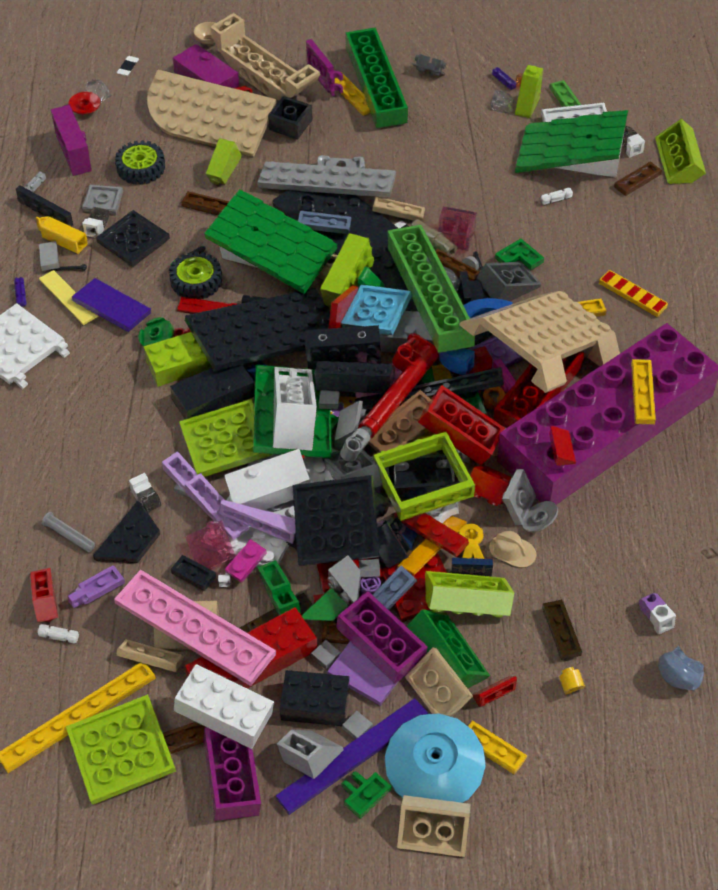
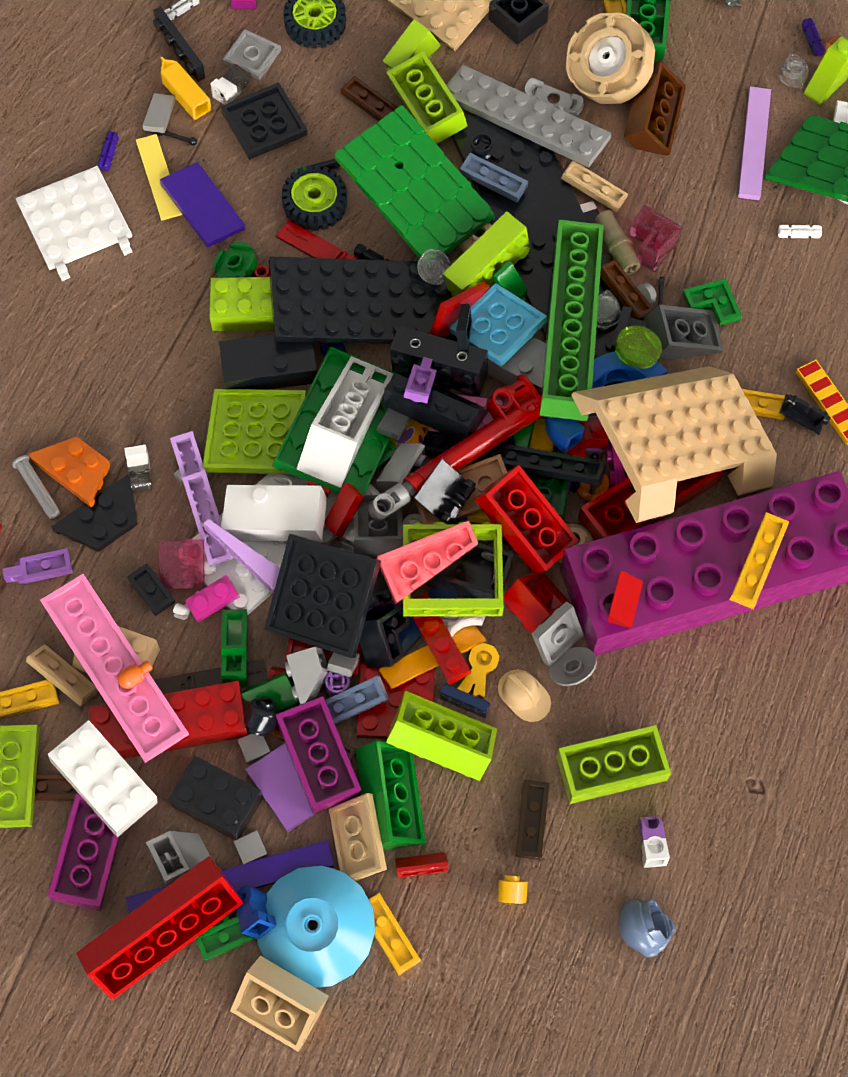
camera: 20 degrees right, 15 degrees up
(92, 508) = (74, 467): none -> orange wing
(215, 622) = (133, 674): none -> orange cylinder
(243, 176) = (427, 97): none -> lime brick
(309, 288) = (432, 266): none -> clear hat
(317, 800) = (159, 928): none -> red brick
(321, 463) = (343, 509): none -> red tile
(325, 624) = (261, 716): none -> black head
(342, 356) = (420, 381): none -> medium lavender hinge
(355, 314) = (464, 326): none -> black tile
(373, 124) = (610, 58): none -> tan piece
(383, 766) = (254, 912): none -> blue leg
(393, 424) = (445, 492): none -> hinge
(400, 471) = (419, 561): none -> coral wing
(417, 150) = (656, 112): none -> reddish brown slope
(485, 292) = (638, 346): none -> clear neon green tile
(497, 152) = (754, 143): none -> lavender tile
(602, 570) = (613, 764): none -> lime brick
(612, 302) = (800, 412): none -> black hinge

